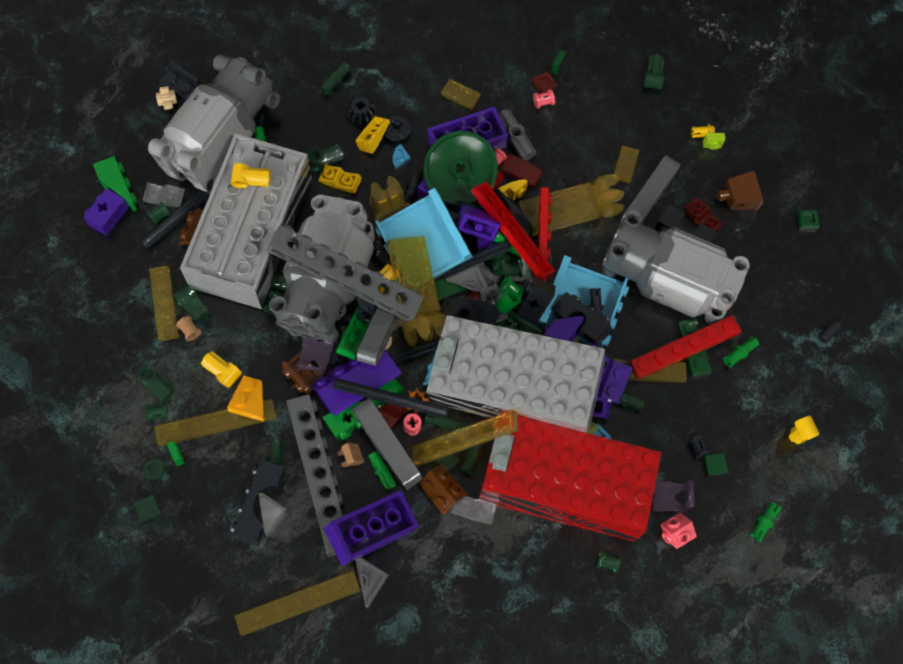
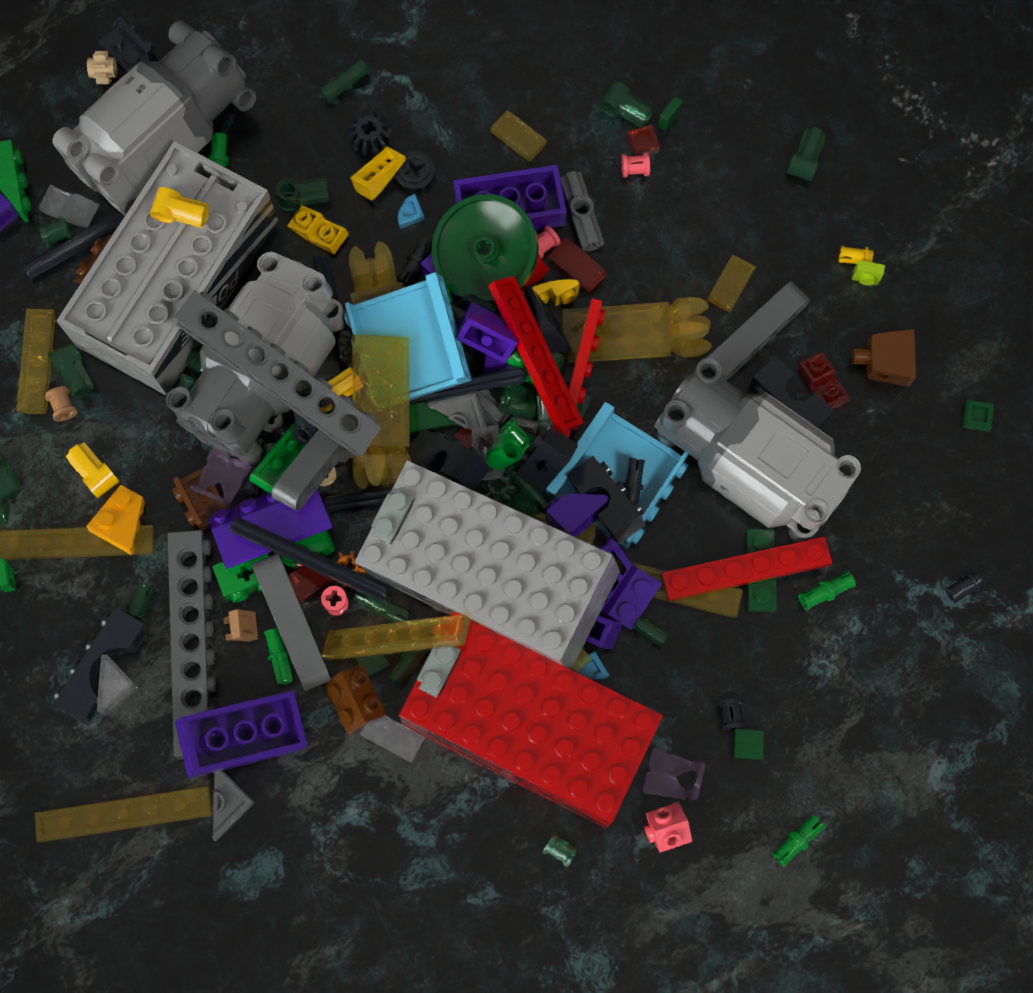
camera: 15 degrees right, 5 degrees up
(524, 60) = (620, 102): none -> clear green piece
(803, 430) = (884, 723): yellow piece -> none

